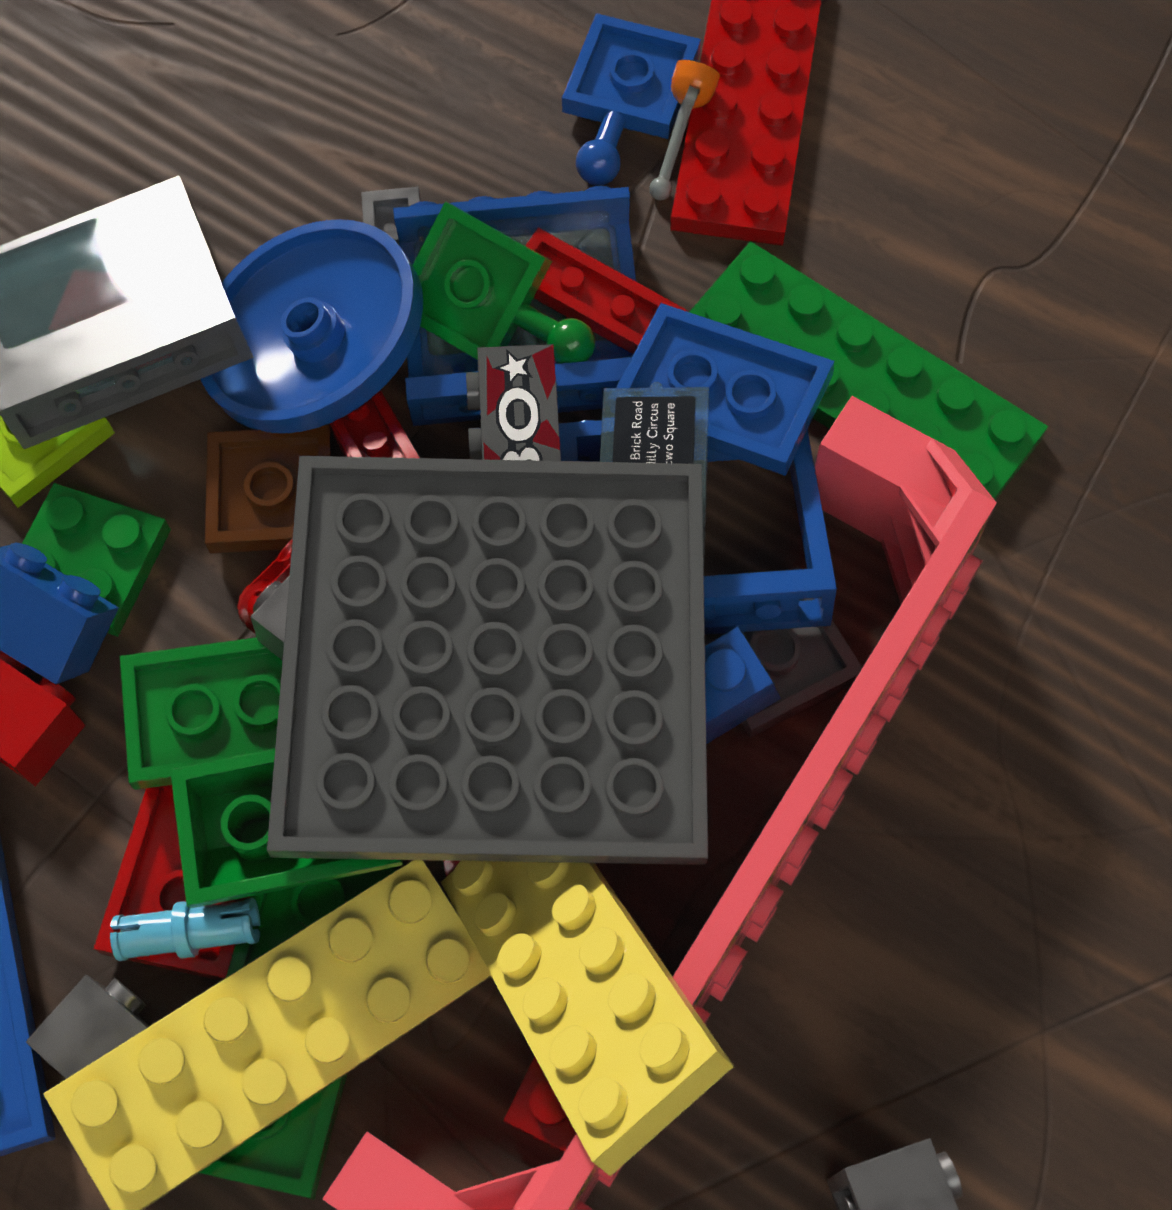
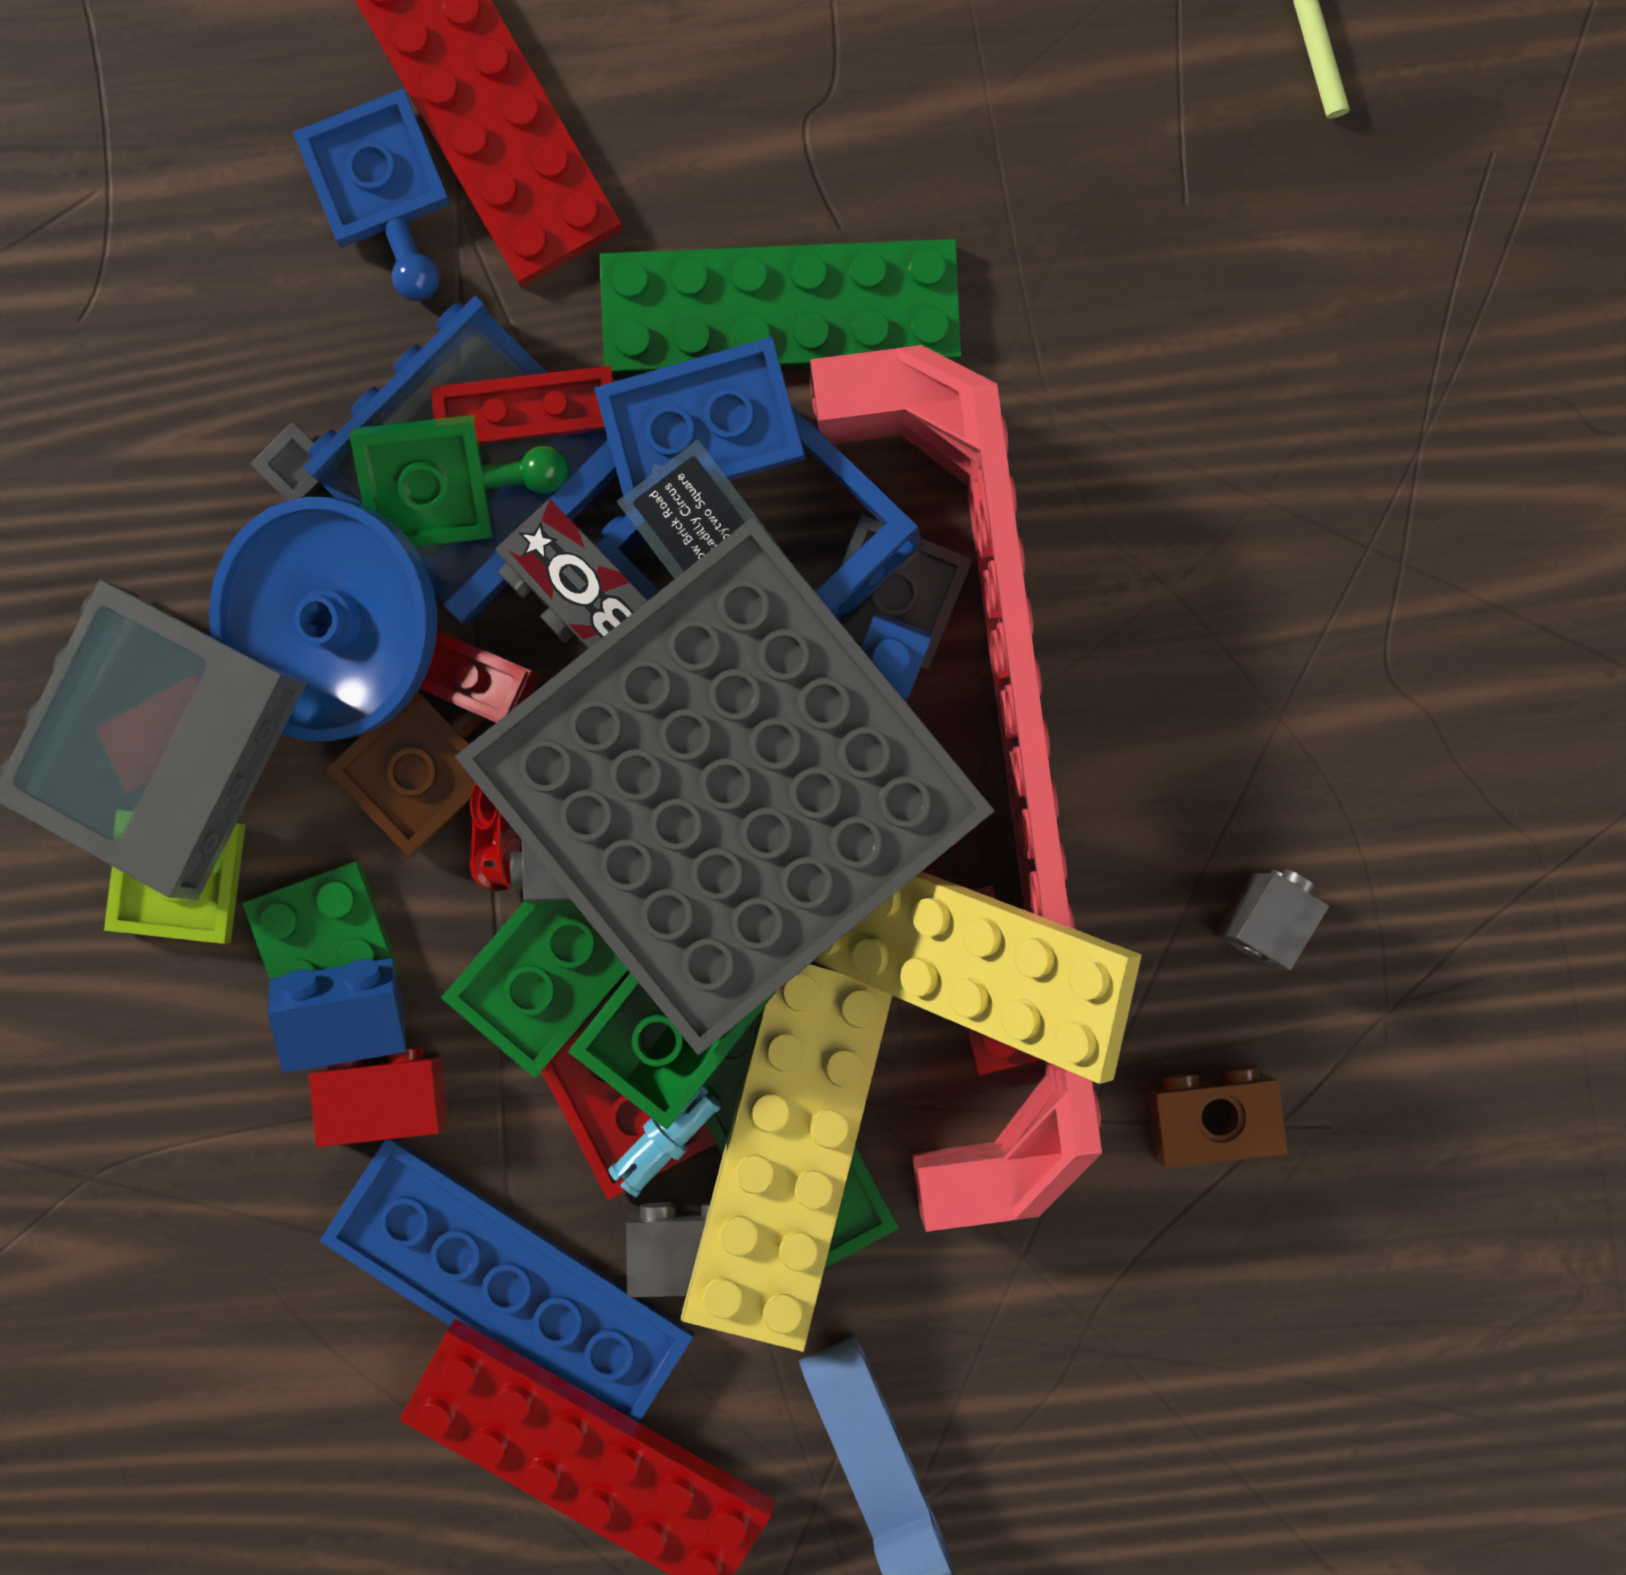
camera: 45 degrees left, 20 degrees up
(692, 87) = (442, 152): hinge -> none

